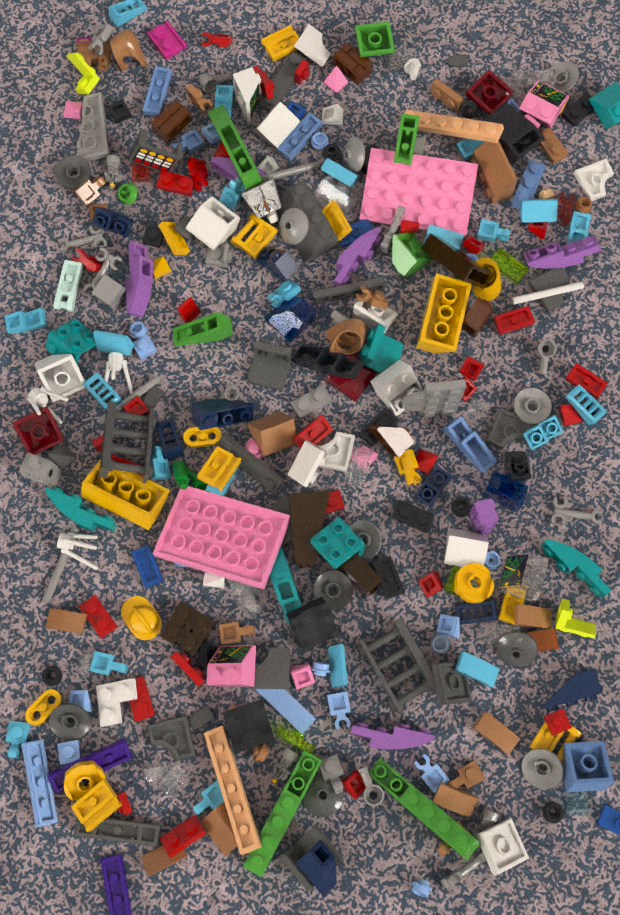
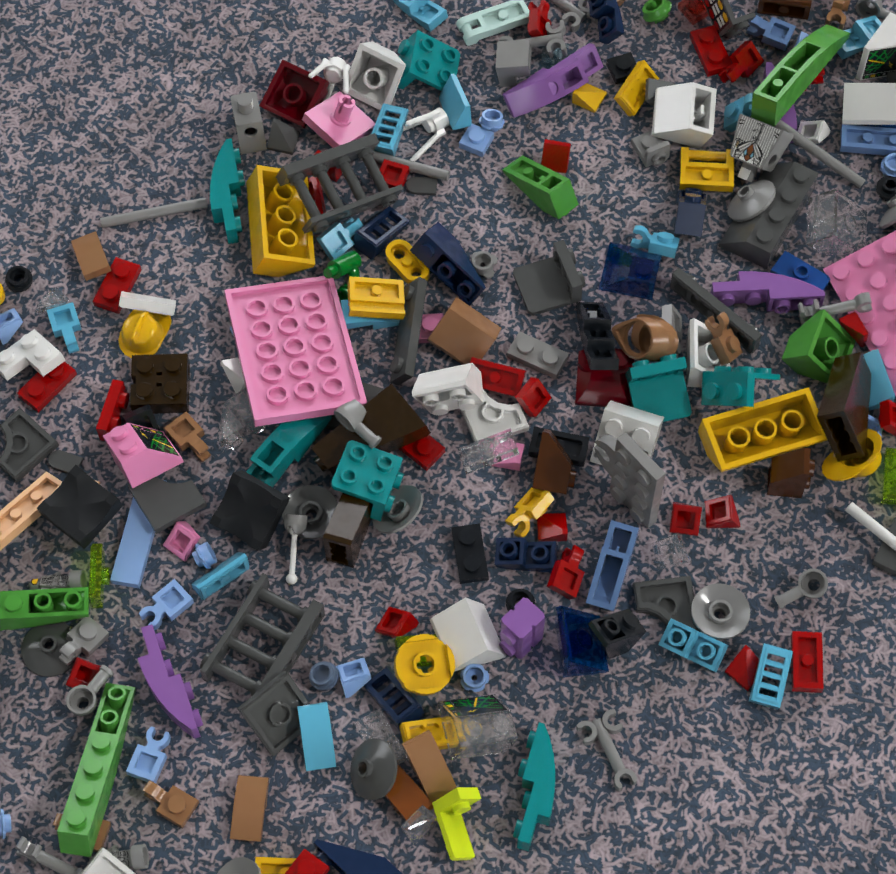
camera: 60 degrees right, 10 degrees down
(68, 541) = (182, 200): white plant -> none
(77, 417) = (338, 120): none -> bright pink tile
(128, 605) = (147, 303): none -> white tile
(147, 566) = (207, 298): blue plate -> none
(260, 752) = (60, 545): medium nougat plate -> none
(296, 529) = (351, 417): none -> light grey bar
(337, 219) = (795, 240): yellow plate -> none
(339, 172) = (865, 210): medium azure slope -> none
(339, 421) = (533, 397): none -> red plate
(339, 603) = (294, 525): none -> hinge
(391, 582) = (369, 567): black plate -> none
(409, 310) = (732, 388): none -> teal bracket
(454, 799) = (131, 801): medium nougat slope -> none
(461, 472) = (565, 575): none -> red plate
(514, 320) = (825, 525): red plate -> none
(563, 642) = (419, 825): none -> clear slope

